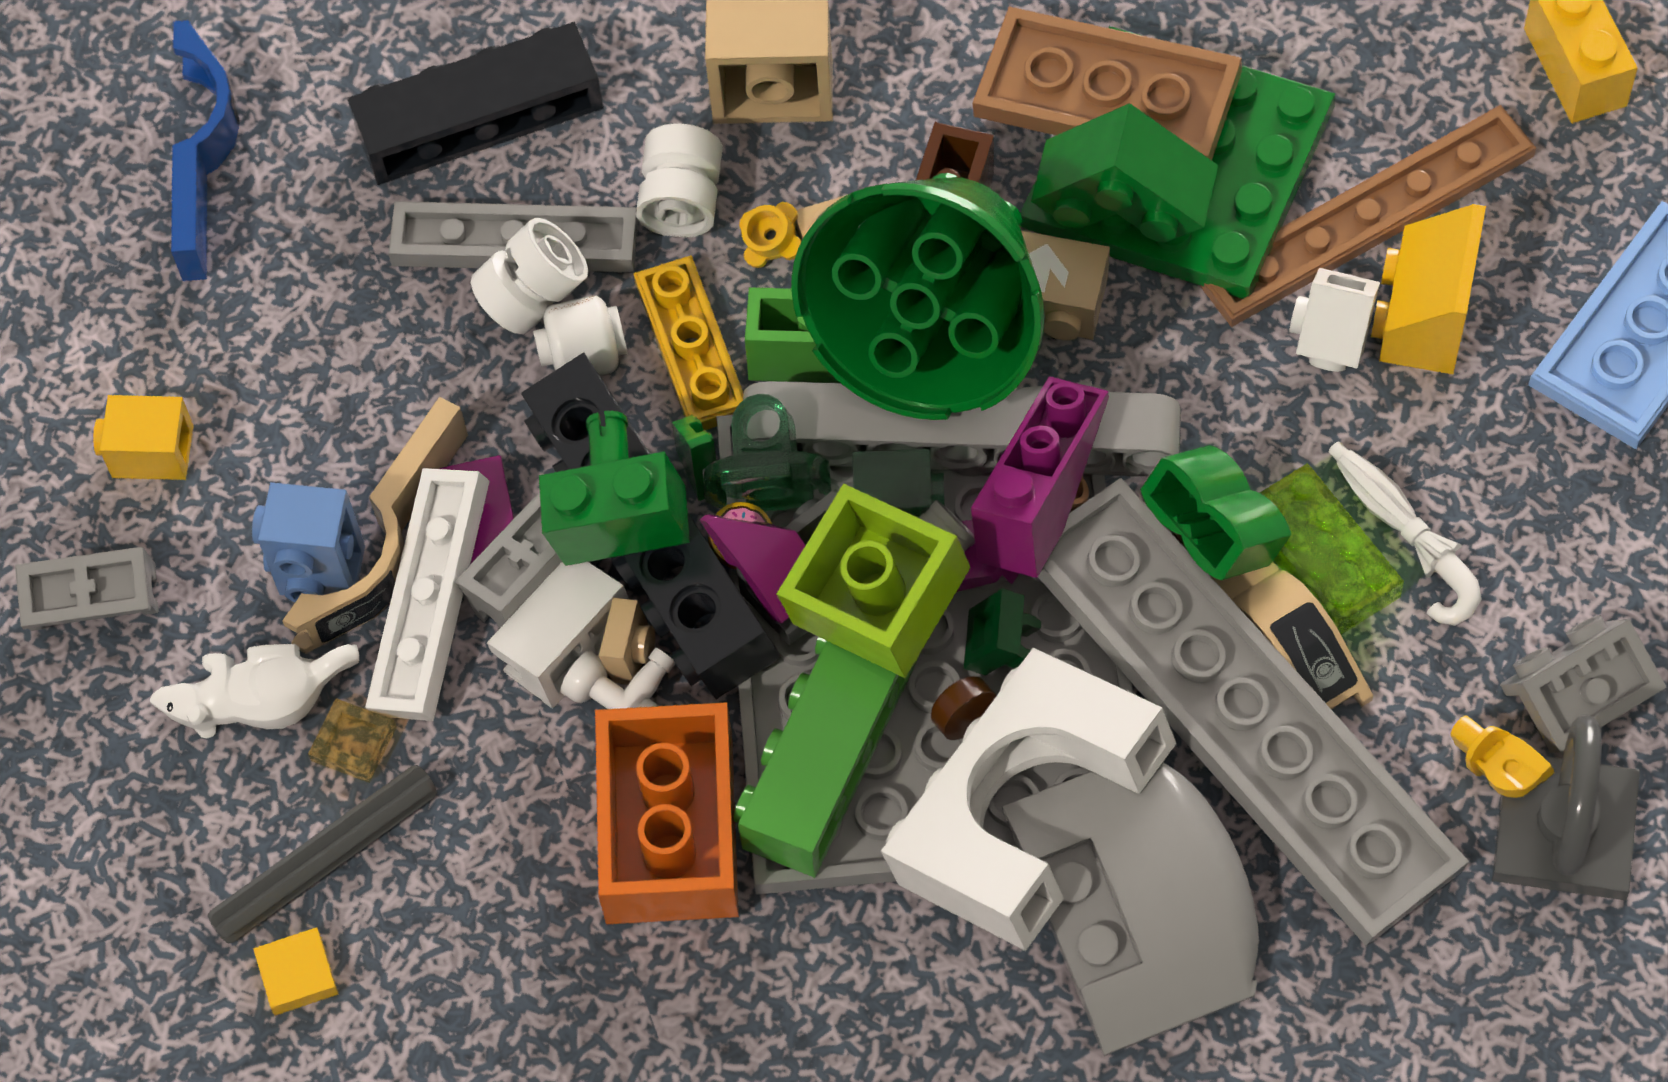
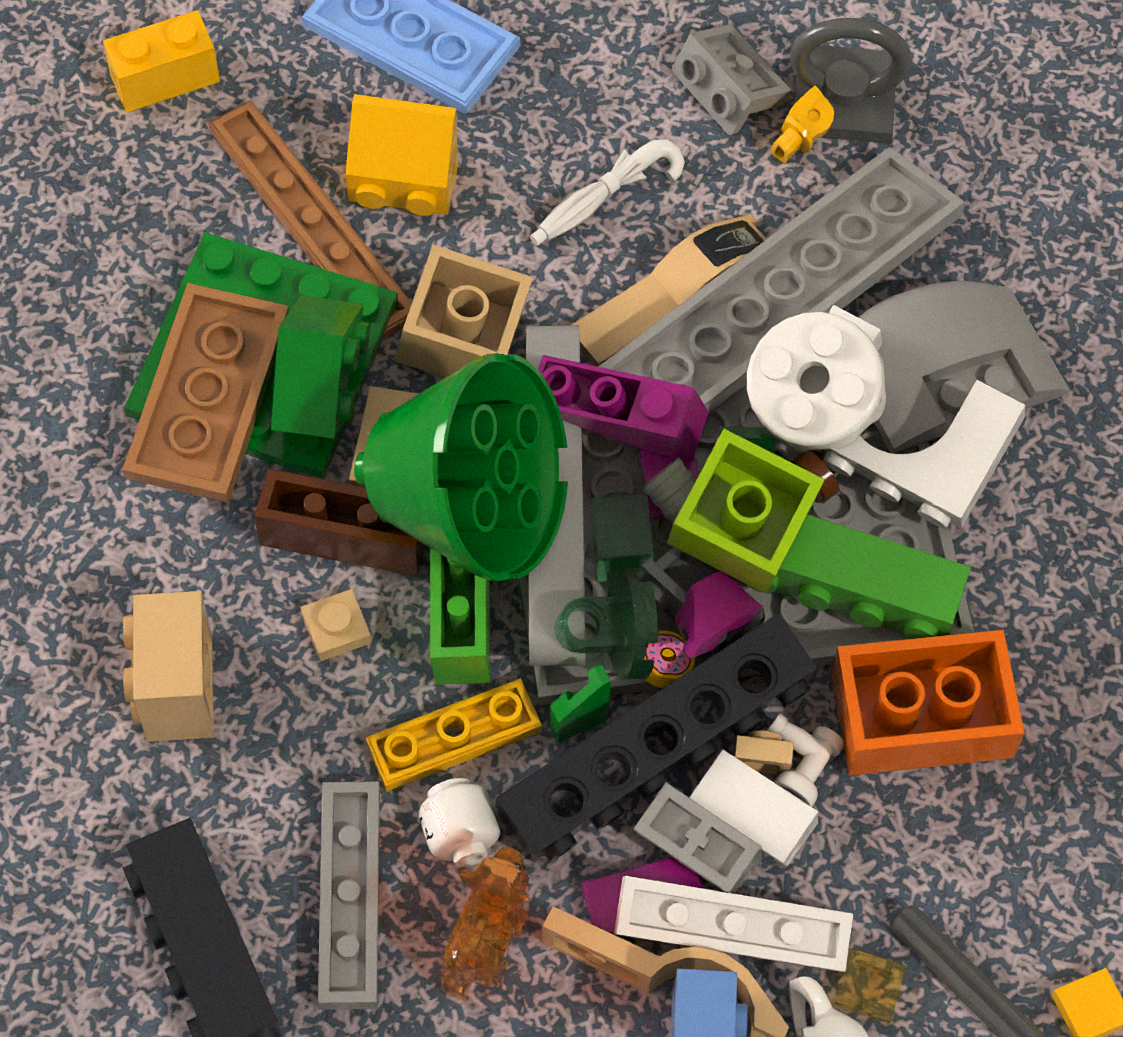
camera: 100 degrees left, 0 degrees up
(436, 338) = (486, 923): none -> clear orange animal
(526, 278) = (412, 868): white wheel -> none
(615, 502) = (669, 736): green brick -> none
(680, 180) = (294, 745): white wheel -> none
(761, 220) = (353, 661): yellow plate -> none
(1061, 709) = (840, 411): none -> white plate
(1203, 345) = (461, 312): none -> tan brick
(1215, 512) = (627, 296): green brick -> none
(1331, 551) = (626, 246): clear neon green piece -> none
(1334, 319) = (424, 219): white brick -> none

